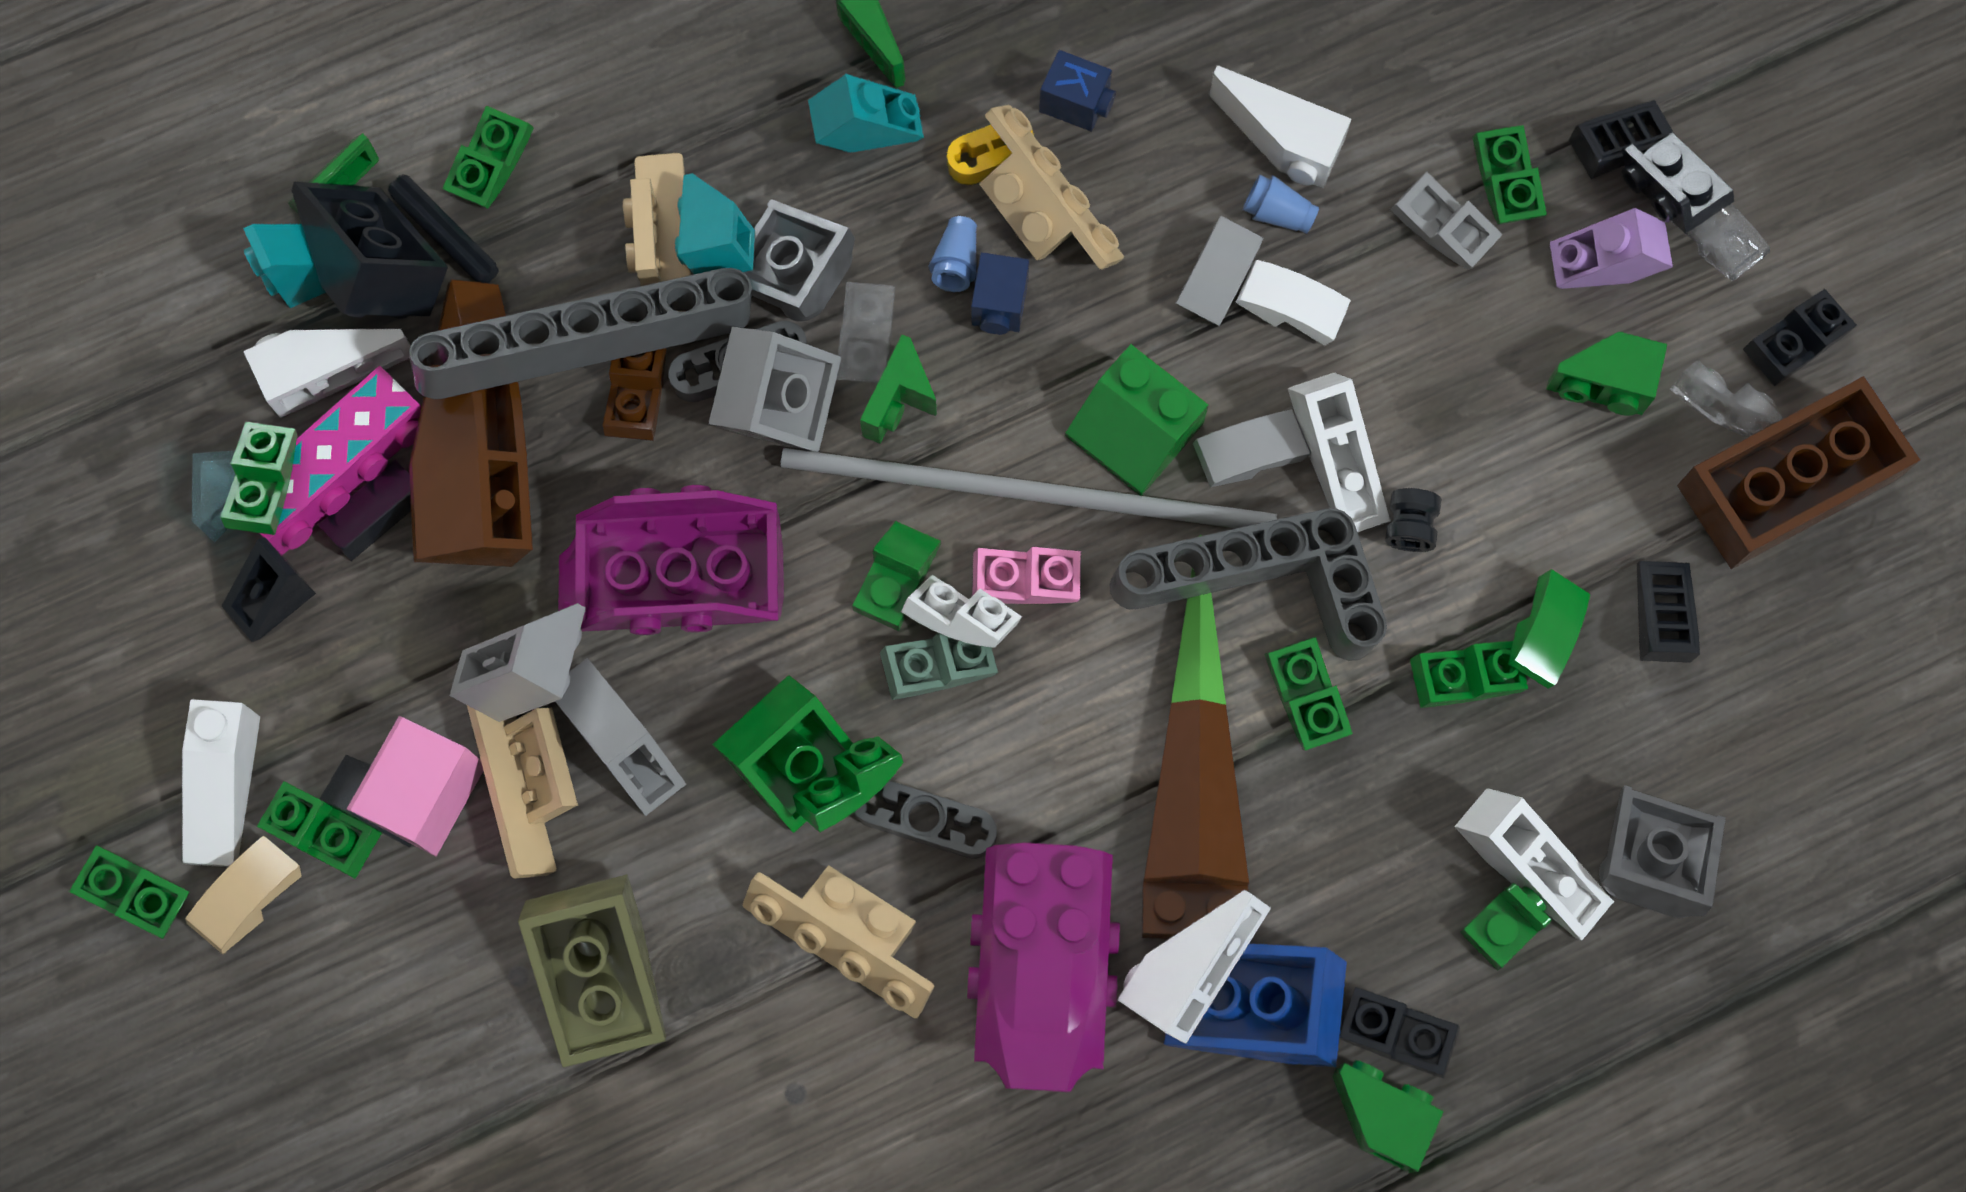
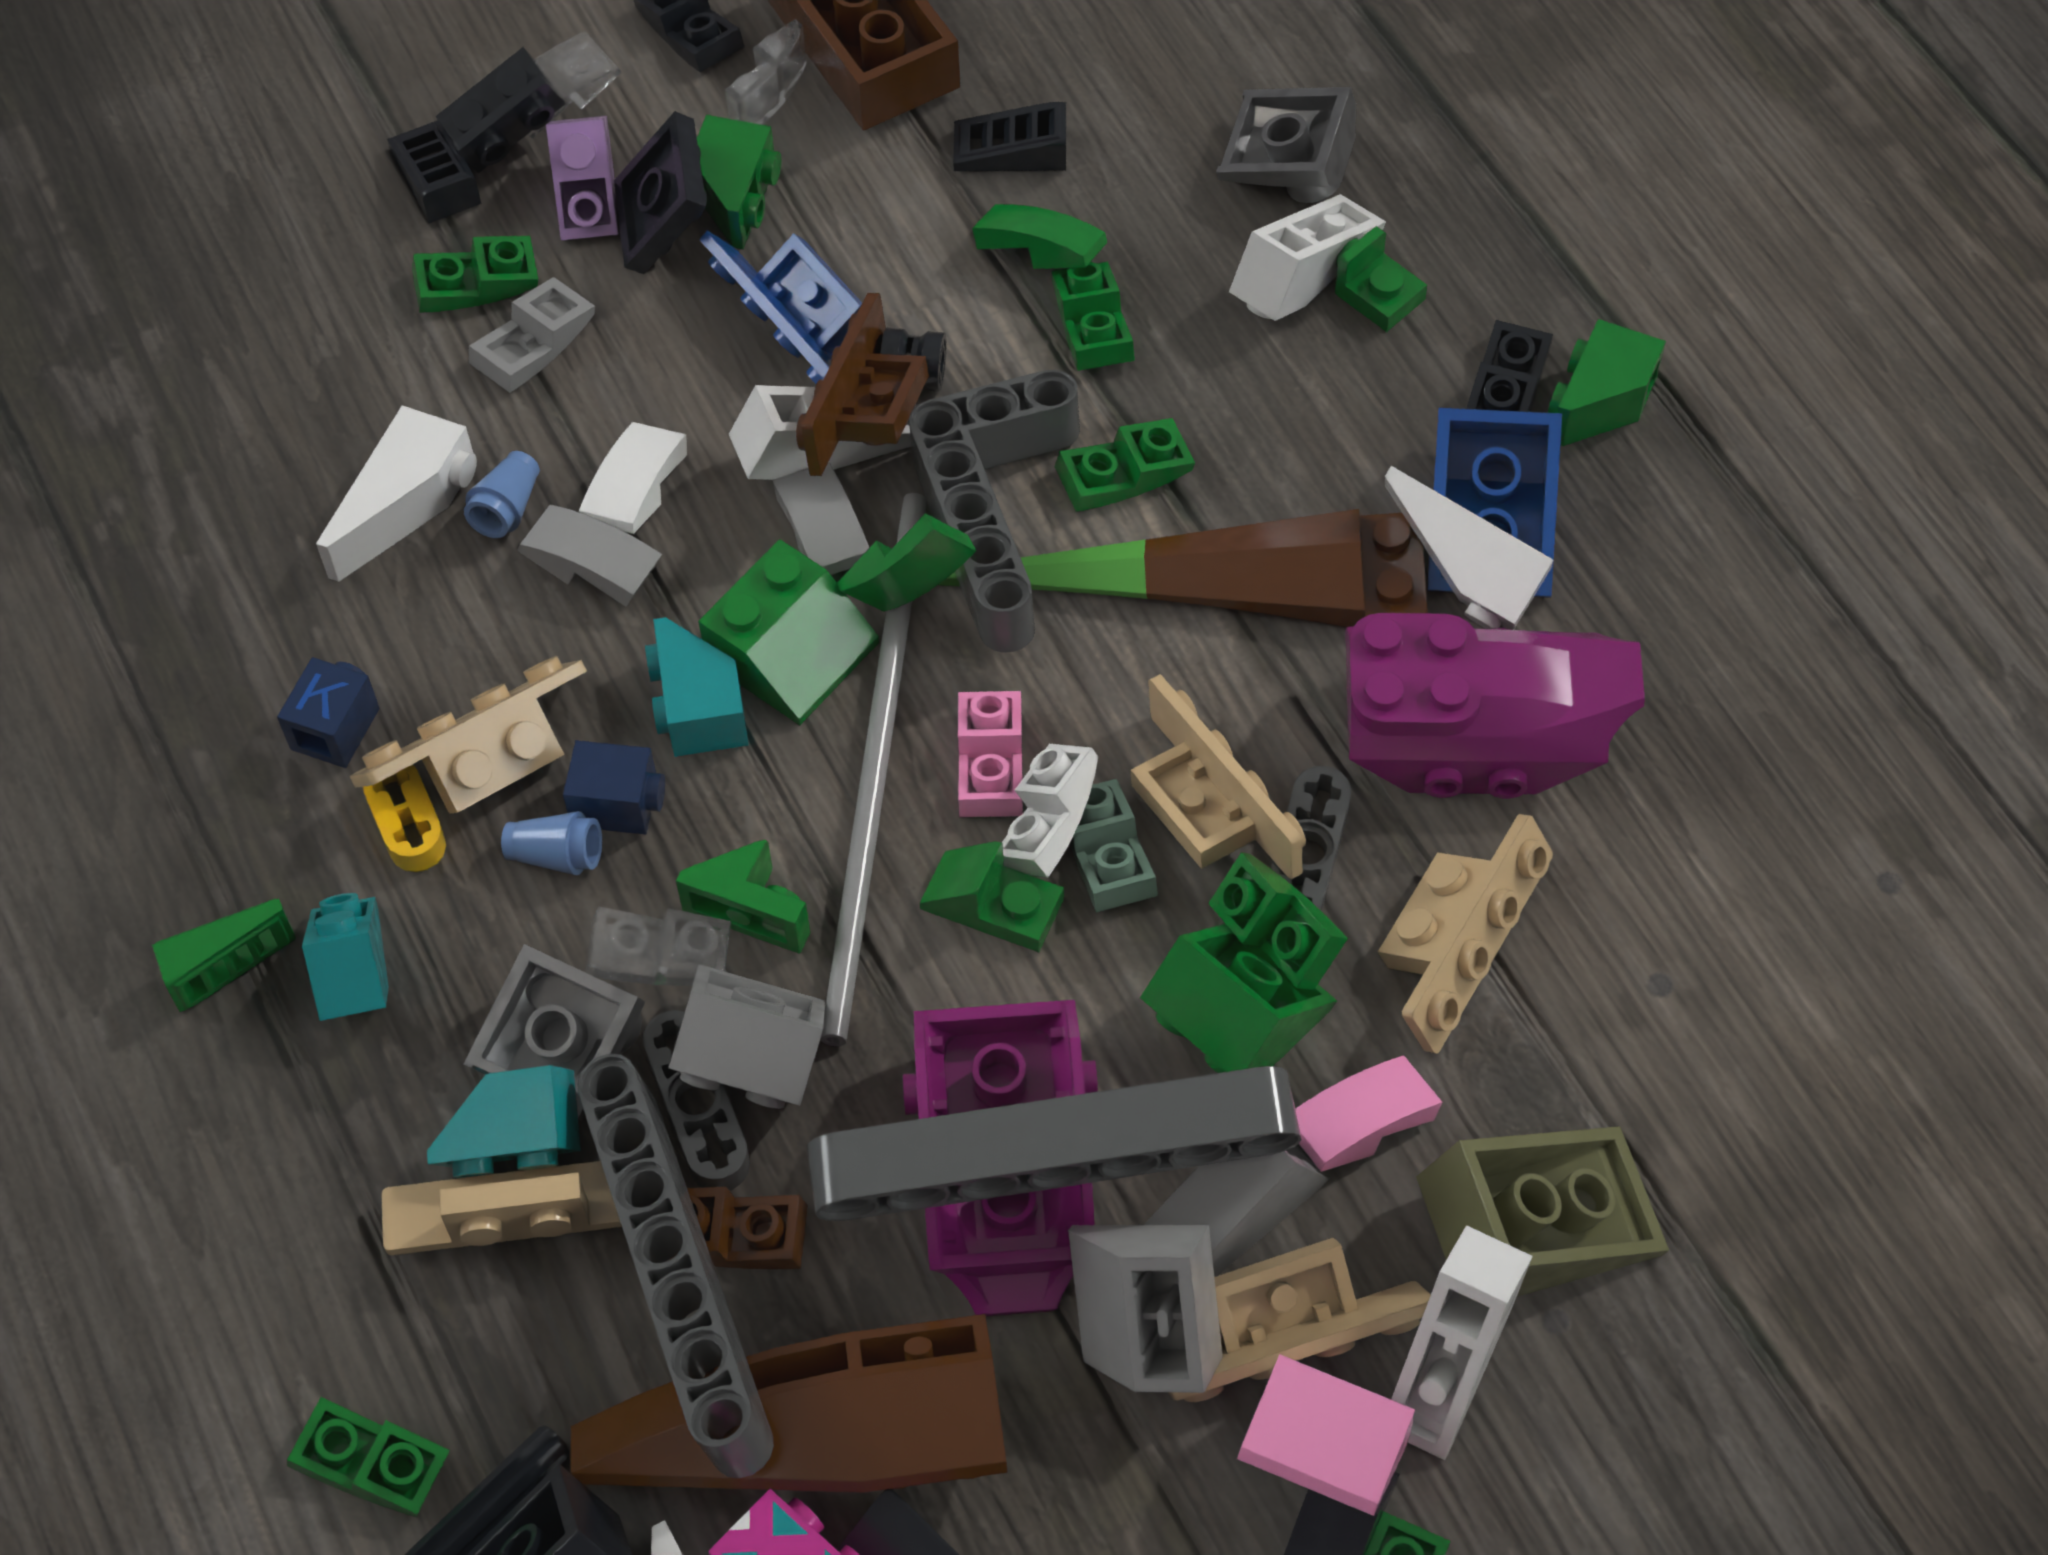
camera: 90 degrees left, 15 degrees down
(479, 884) = (1458, 1336): none -> white slope
(621, 587) = (1052, 1143): none -> dark grey beam
(686, 840) = (1358, 1111): none -> bright pink slope
(968, 732) = (1207, 794): none -> tan bracket
(1083, 350) = (700, 692): none -> teal slope
(1177, 503) = (911, 568): none -> green slope
(1354, 469) = (863, 392): none -> reddish brown bracket
(1470, 426) = (795, 293): none -> bracket
(1581, 309) = (660, 193): none -> black plate

